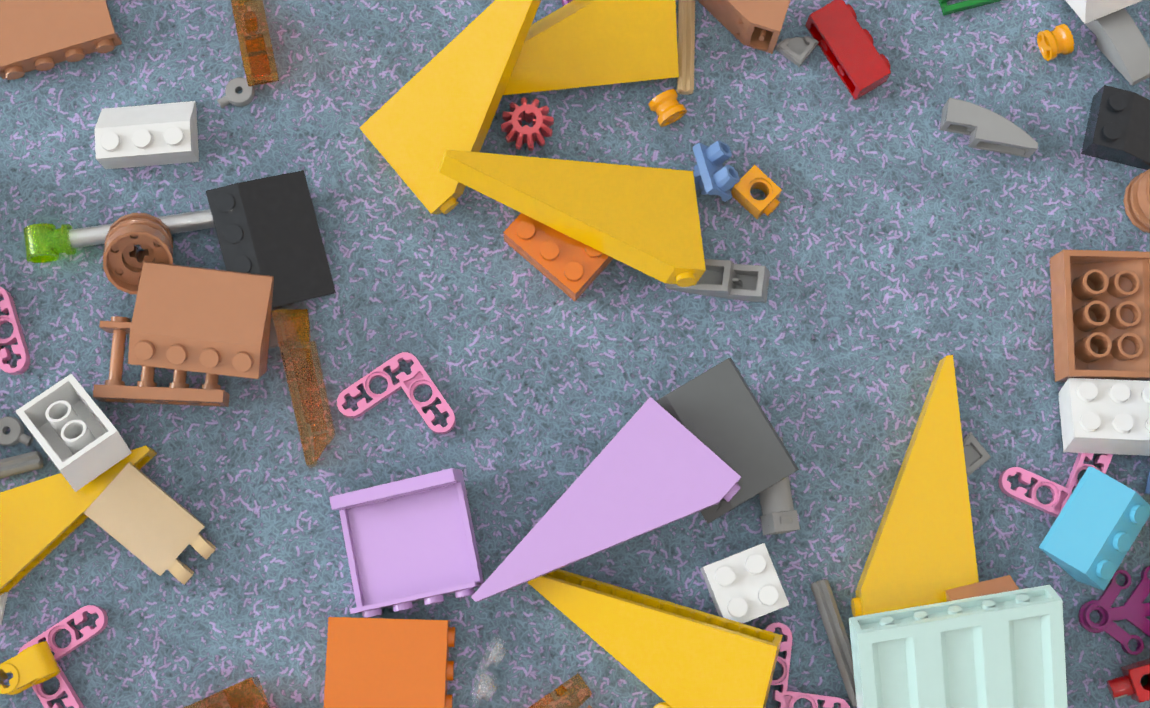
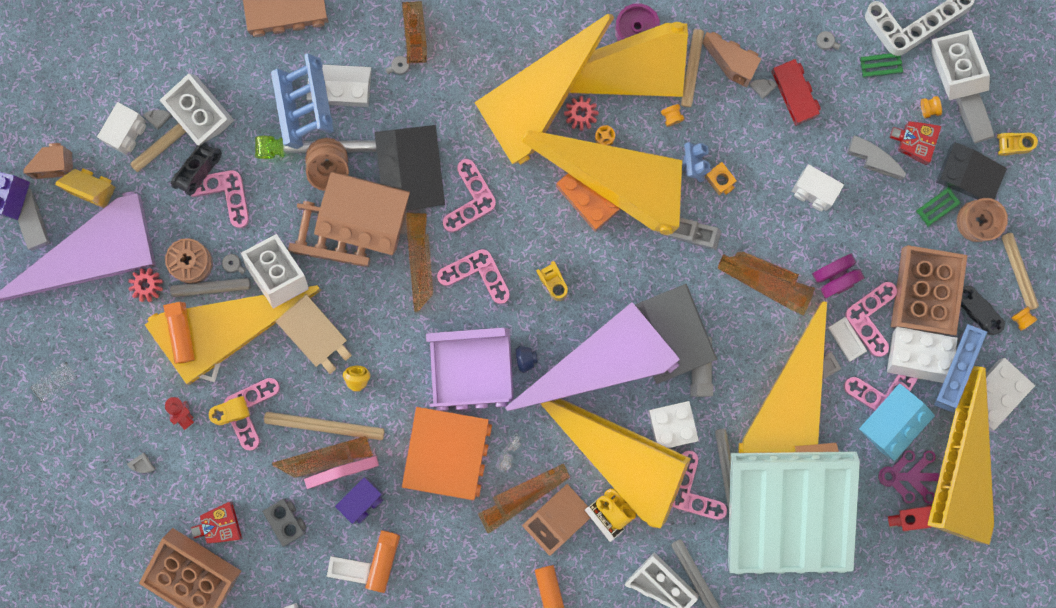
camera: 15 degrees right, 5 degrees up
(66, 170) = (286, 104): none -> medium blue fence
(184, 669) = (323, 425): none -> tan axle
(227, 584) = (356, 377): none -> yellow cone
(385, 273) = (478, 197): none -> bright pink beam
(494, 513) = (525, 358): none -> dark blue cone
(518, 381) = (552, 280): none -> yellow piece
(570, 147) = (606, 133): none -> light orange wheel
(855, 336) = (769, 280): none -> clear orange wedge
(907, 184) = (817, 188): none -> white brick
(964, 313) = (839, 277): none -> magenta wheel
(991, 410) = (847, 339): none -> white tile
(1012, 375) = (864, 320): none -> bright pink beam
(1044, 94) = (917, 140): none -> red torso
(1074, 207) = (951, 197): none -> green tile

